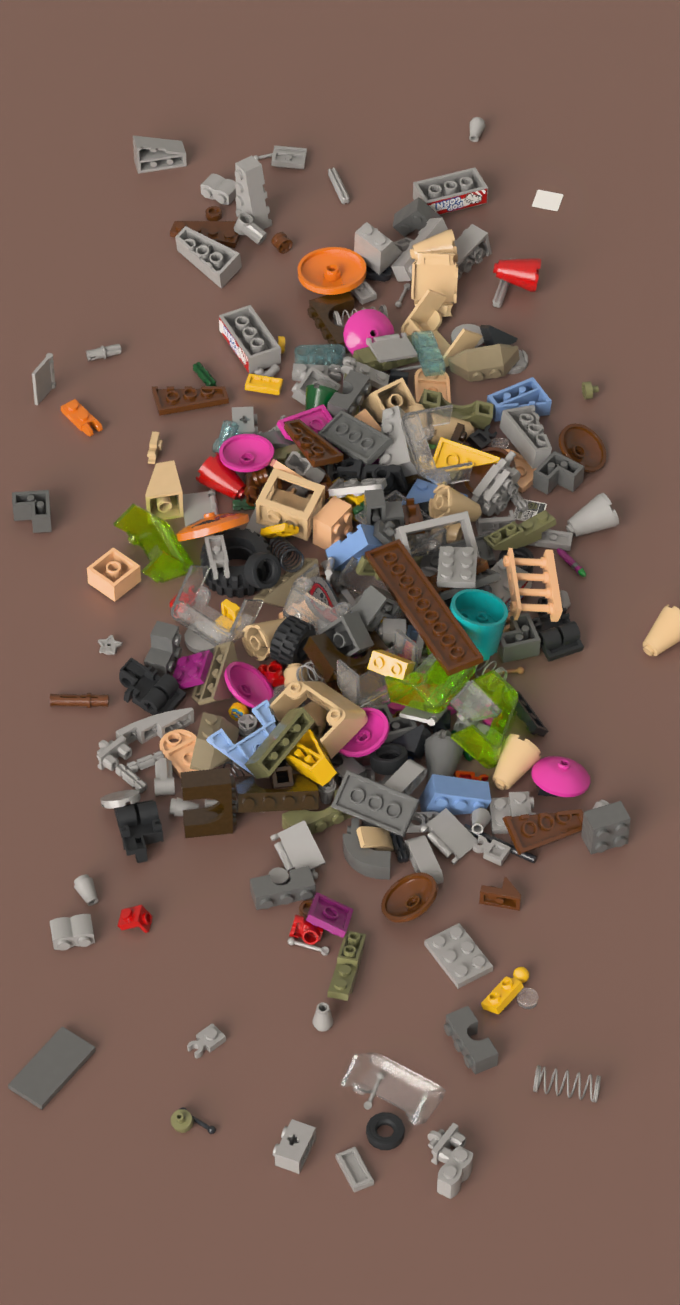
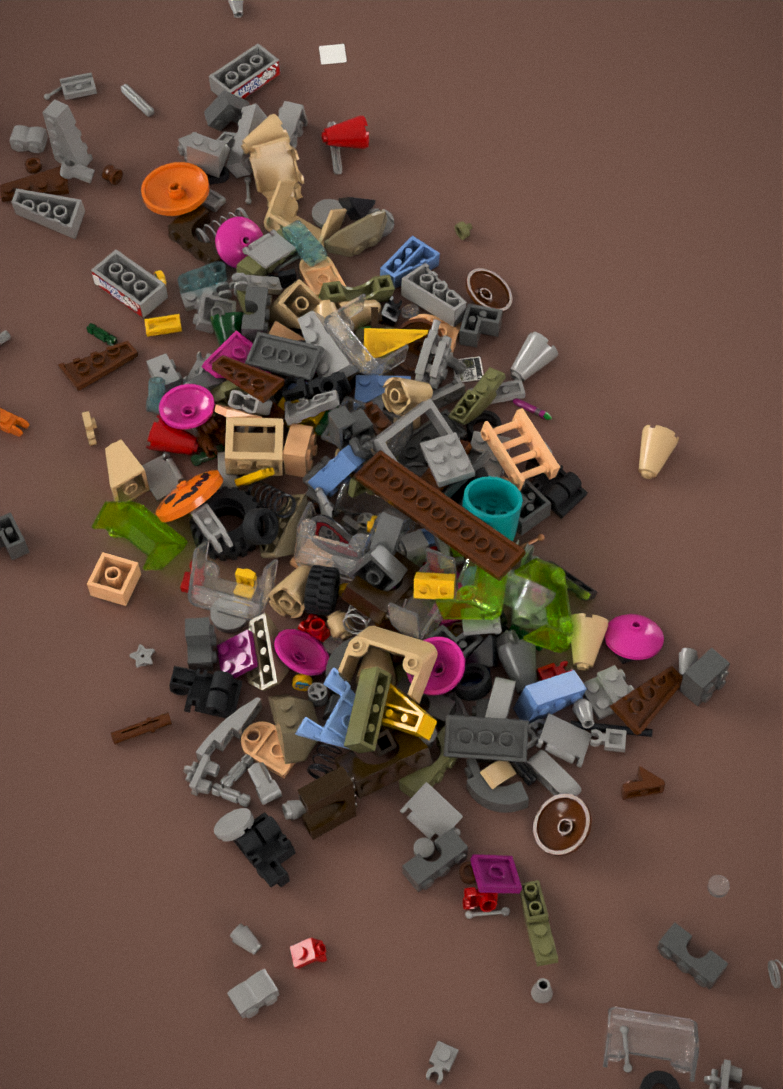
camera: 20 degrees left, 10 degrees up
(271, 372) = (163, 311): light grey arm -> none
(458, 955) = (632, 865): light grey plate -> none
(505, 991) = (696, 888): yellow plate -> none

